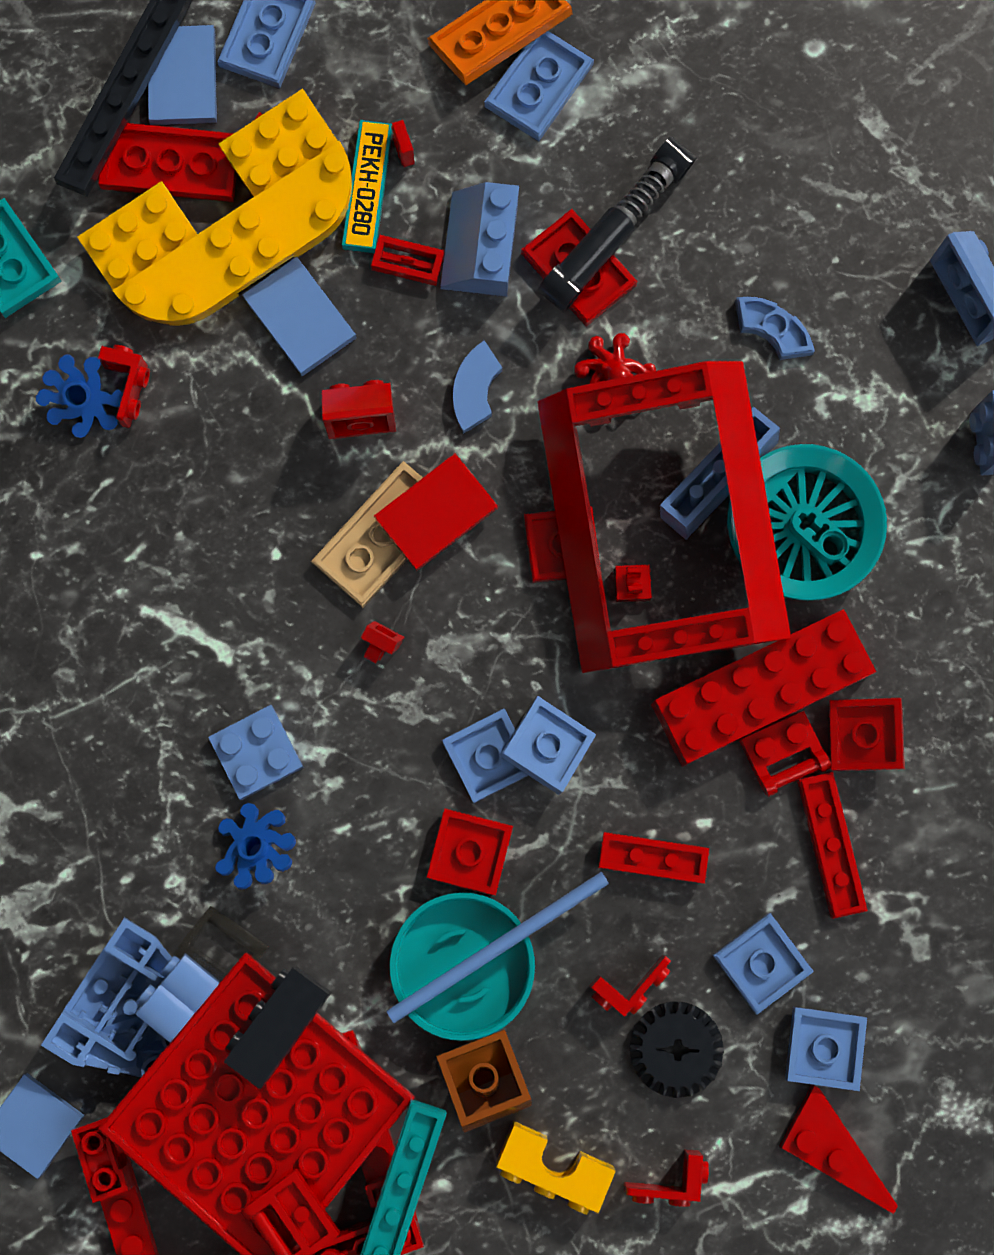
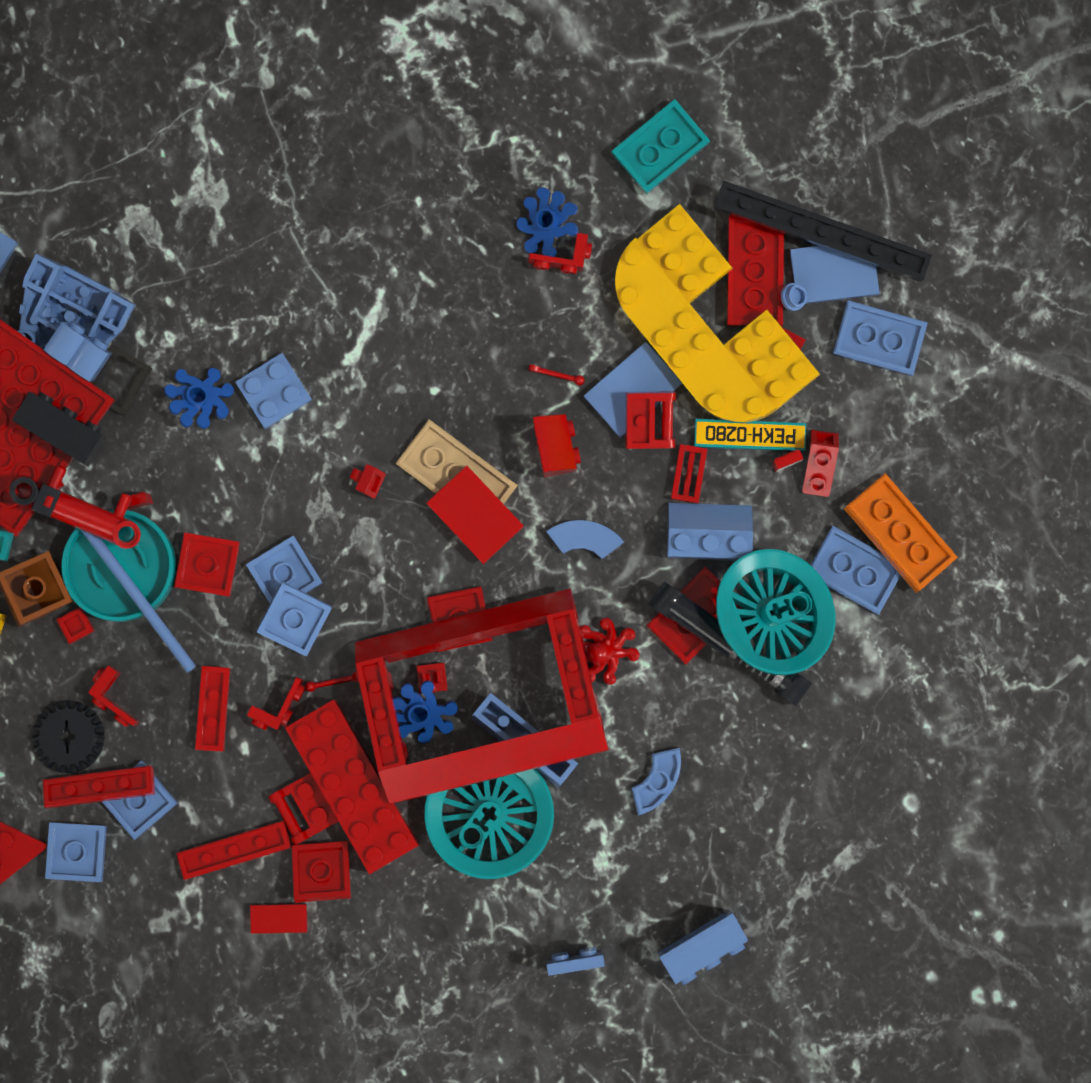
camera: 90 degrees right, 5 degrees up
(206, 116) = (793, 296): none -> medium blue plate
(280, 380) = (578, 380): none -> red hinge
(338, 304) = (641, 420): none -> red plate
(380, 938) = (140, 500): none -> red tile
(389, 1014) = (76, 512): none -> red piece
(409, 103) = (821, 463): none -> bracket
(533, 1029) = (75, 625): none -> red tile
(583, 168) = (809, 595): none -> teal piece
(624, 677) = (311, 686): none -> red hinge
(671, 793) = (264, 719): none -> red bracket
(677, 592) = (422, 712): none -> blue animal
(745, 1013) = (98, 787): none -> red tile
(920, 795) = (278, 918): none -> red tile

